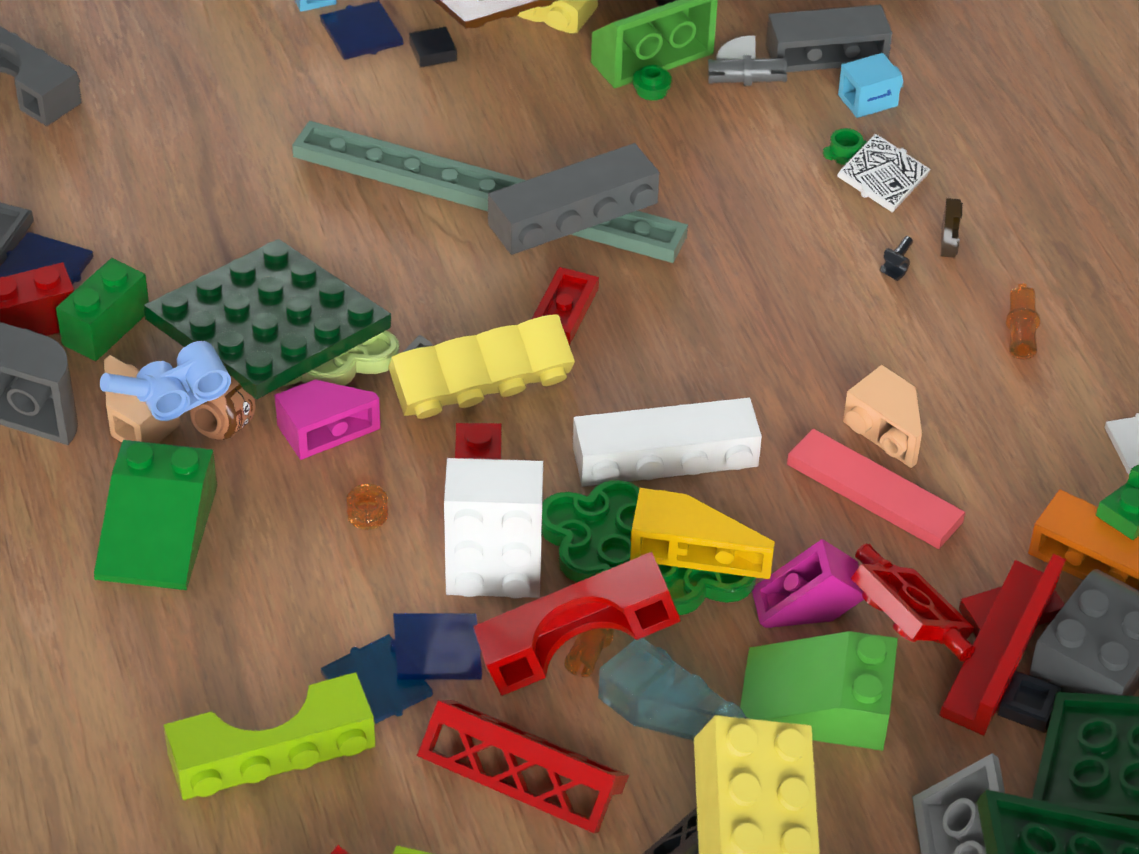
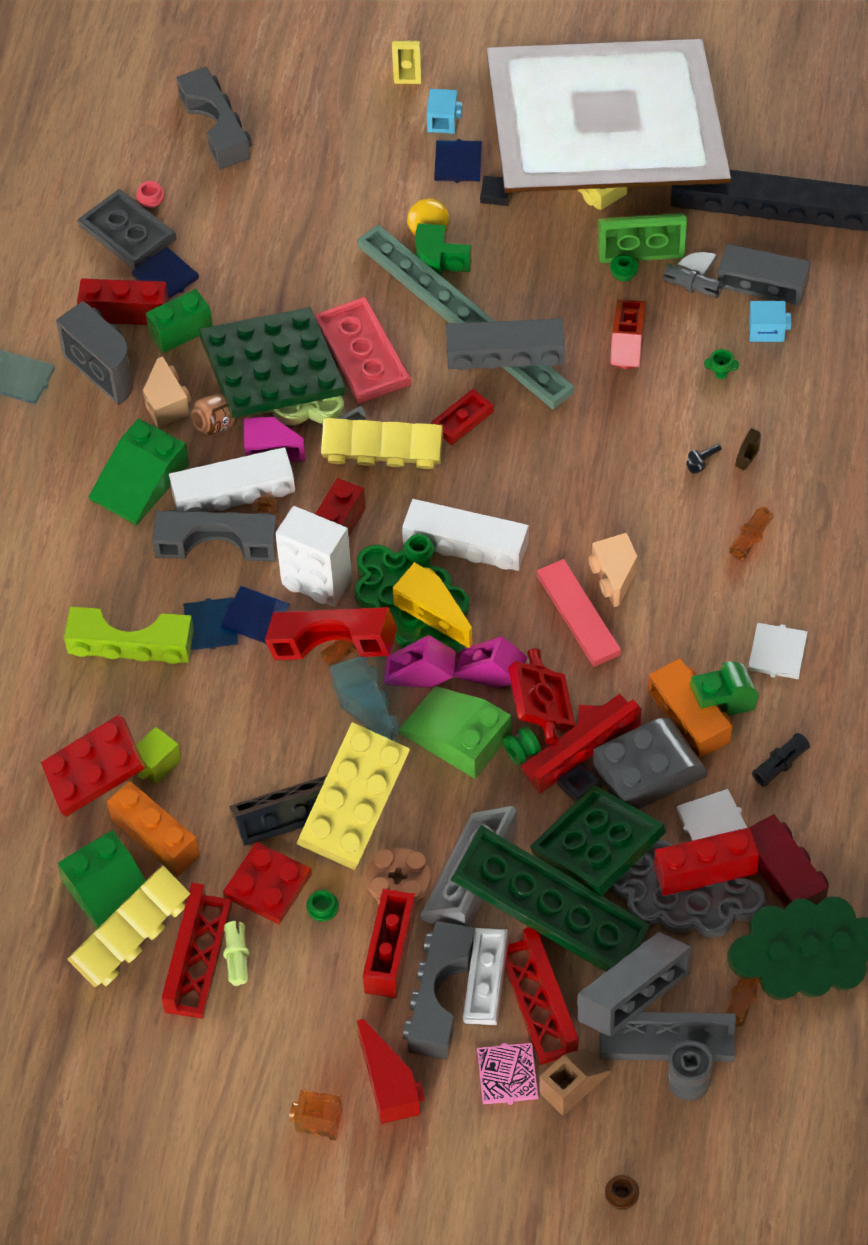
camera: 30 degrees right, 10 degrees up
(175, 390) = (180, 395): light blue beam -> none
(299, 485) = (233, 482): none -> white brick
(367, 540) = (180, 532): none -> dark grey arch
(368, 98) = (427, 212): none -> yellow hair
(382, 270) = (362, 350): none -> coral tile
(395, 122) = (439, 255): none -> green brick
(529, 747) = (268, 698): red fence -> none
(622, 475) = (417, 542): none -> green plate
(714, 149) = (628, 333): none -> red slope
(717, 624) = (420, 664): none -> dark pink slope
(883, 172) = (735, 391): white piece -> none
(924, 678) = (521, 745): none -> green wheel

